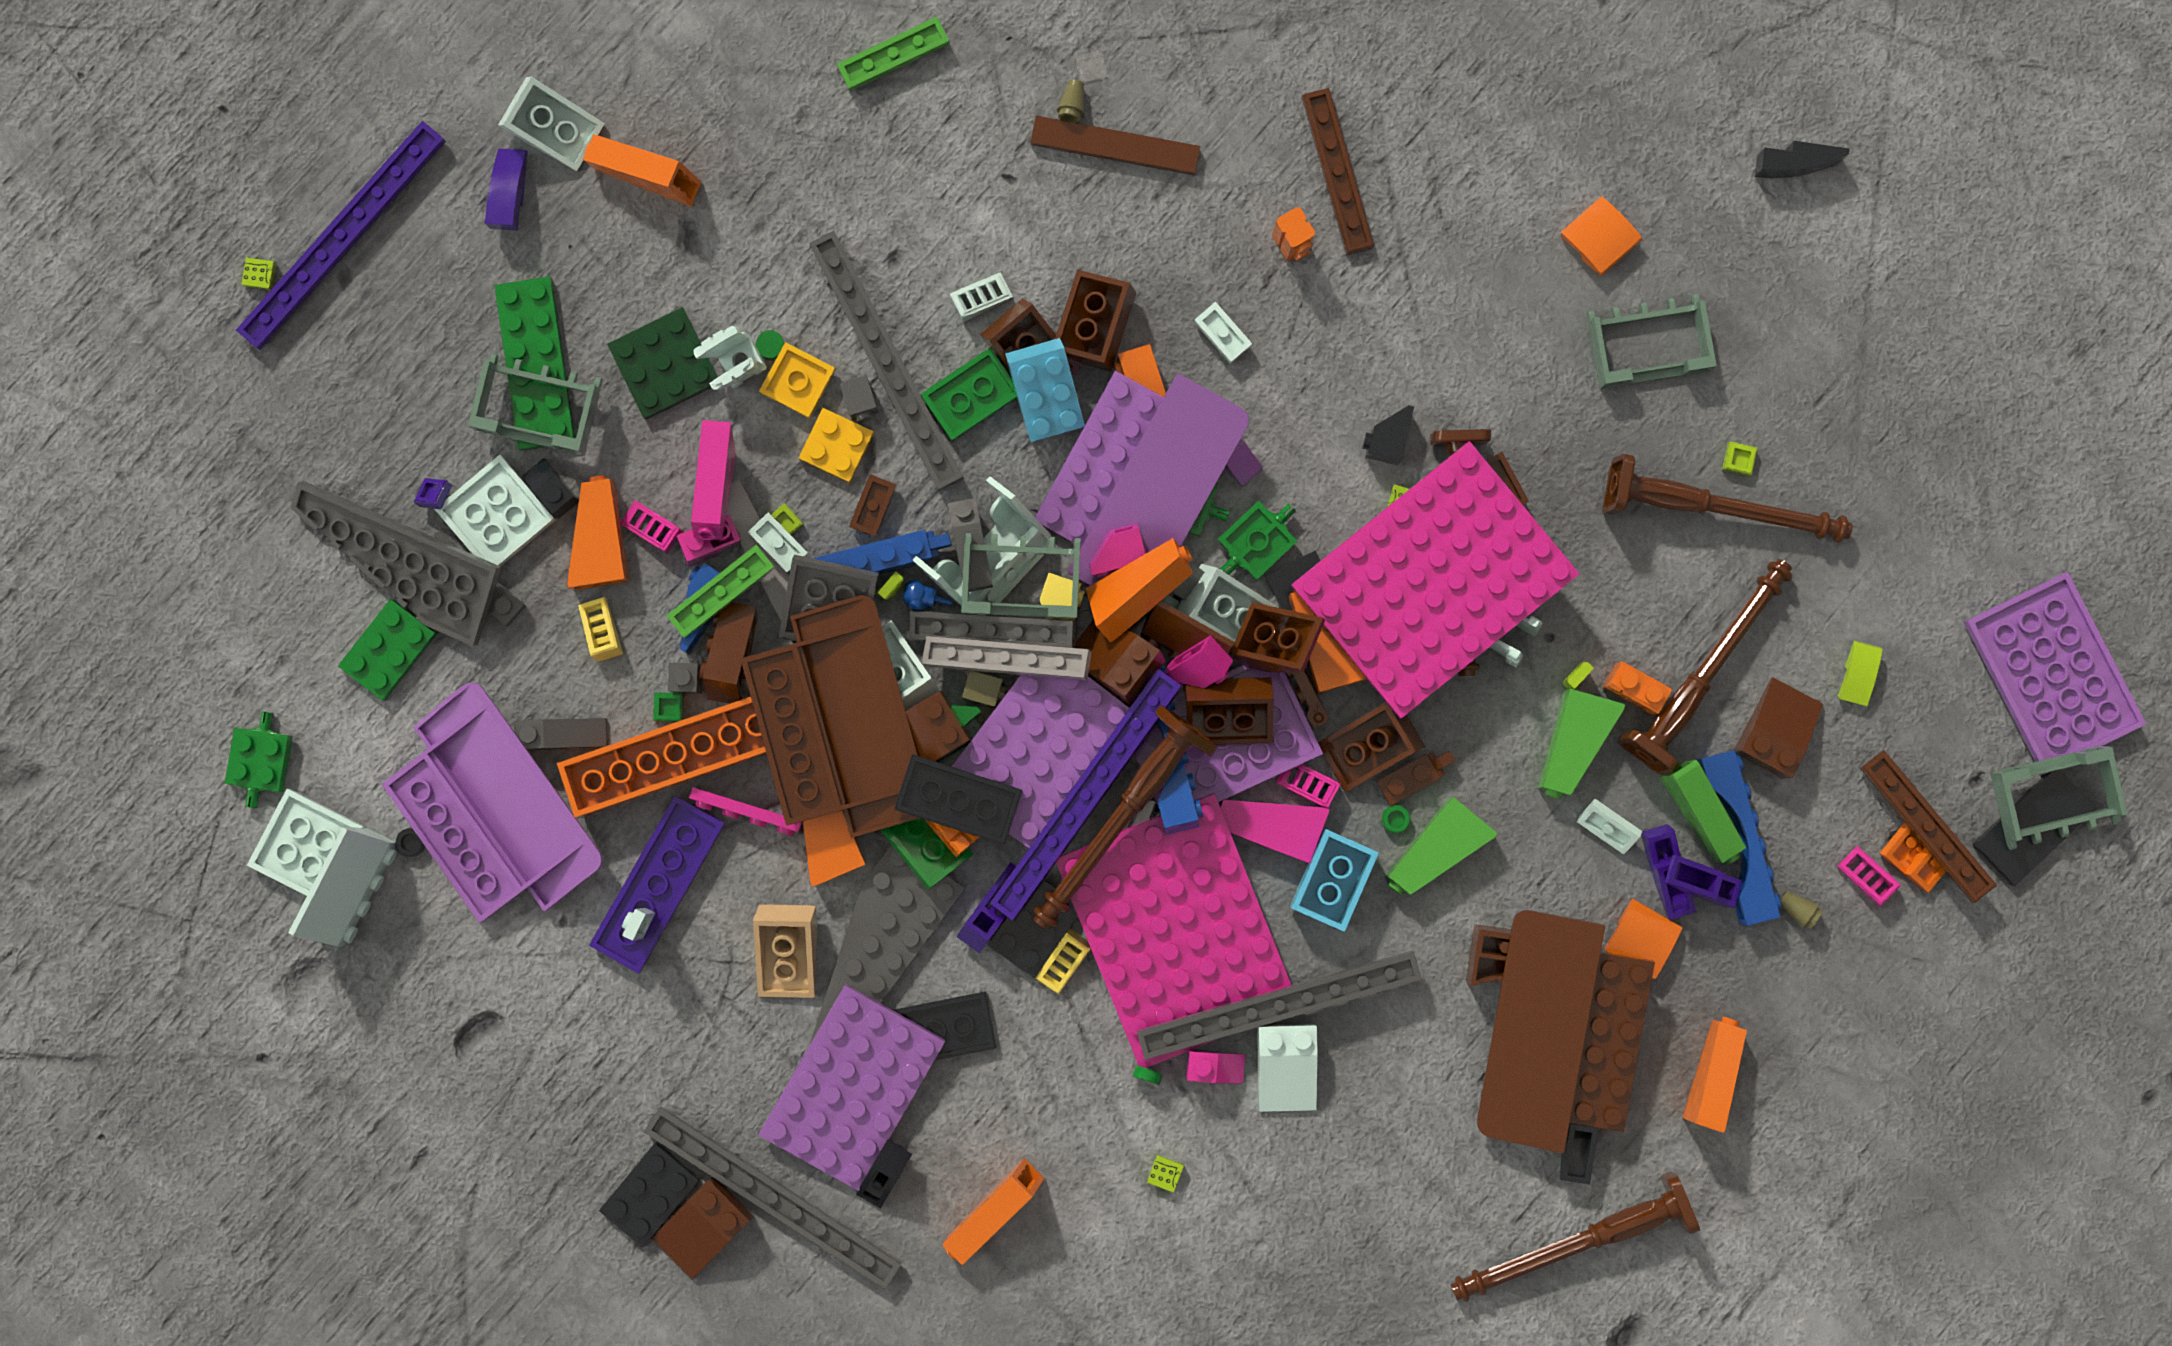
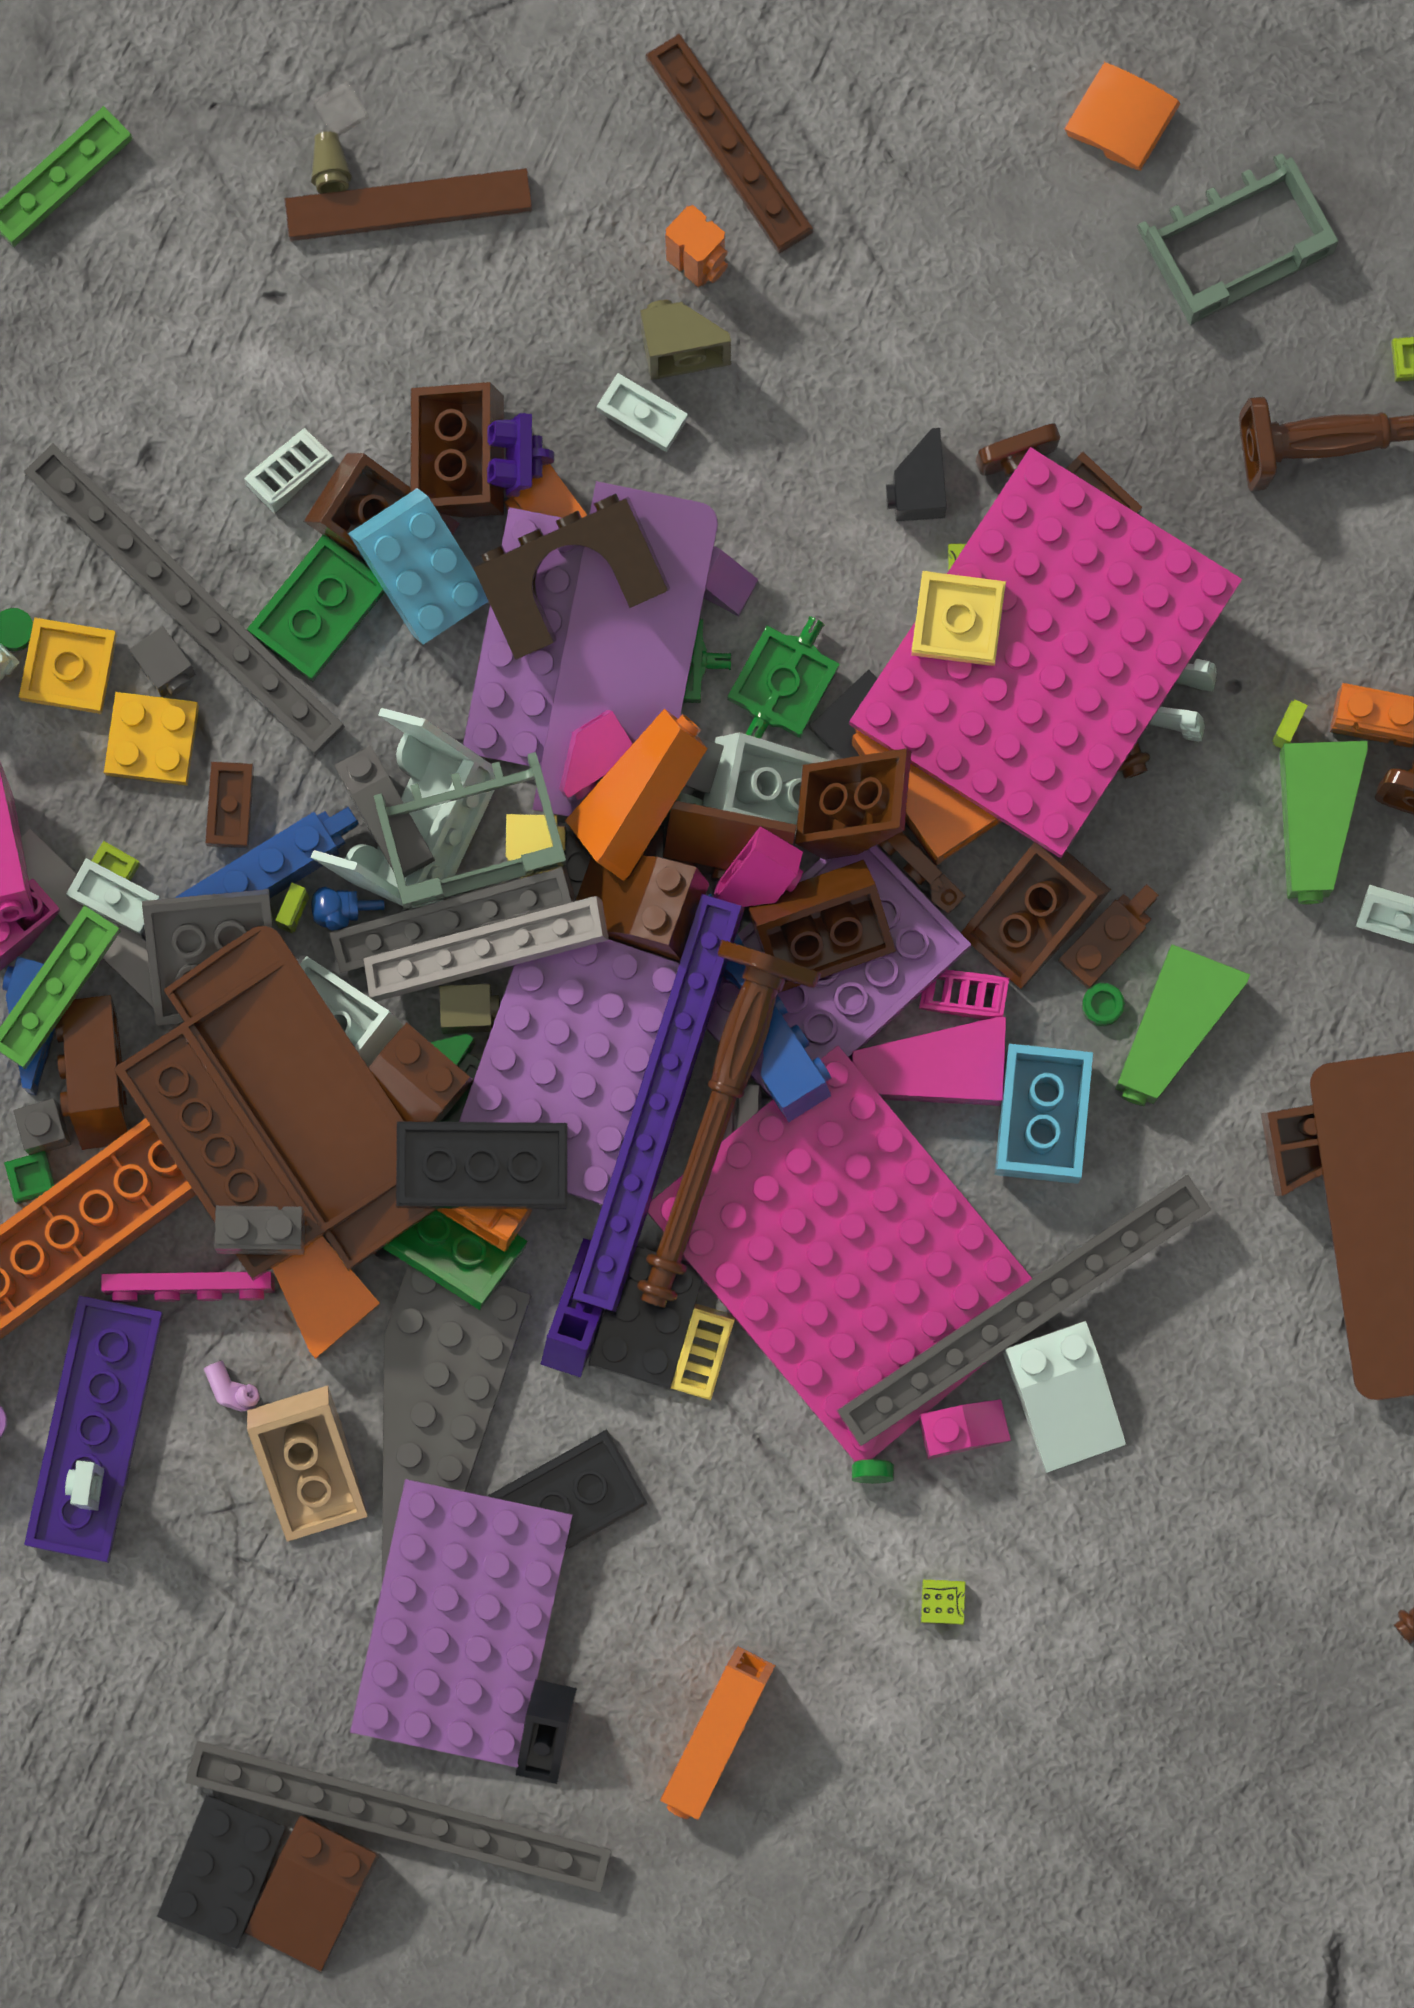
camera: 15 degrees left, 5 degrees down
(752, 889) = (230, 1393): none -> lavender arm
(800, 797) = (259, 1230): none -> dark grey brick
(1135, 338) = (523, 454): none -> dark purple hips
(1175, 409) = (511, 575): none -> dark brown arch
(1263, 294) = (681, 340): none -> olive slope
(1385, 540) = (958, 618): none -> light yellow tile

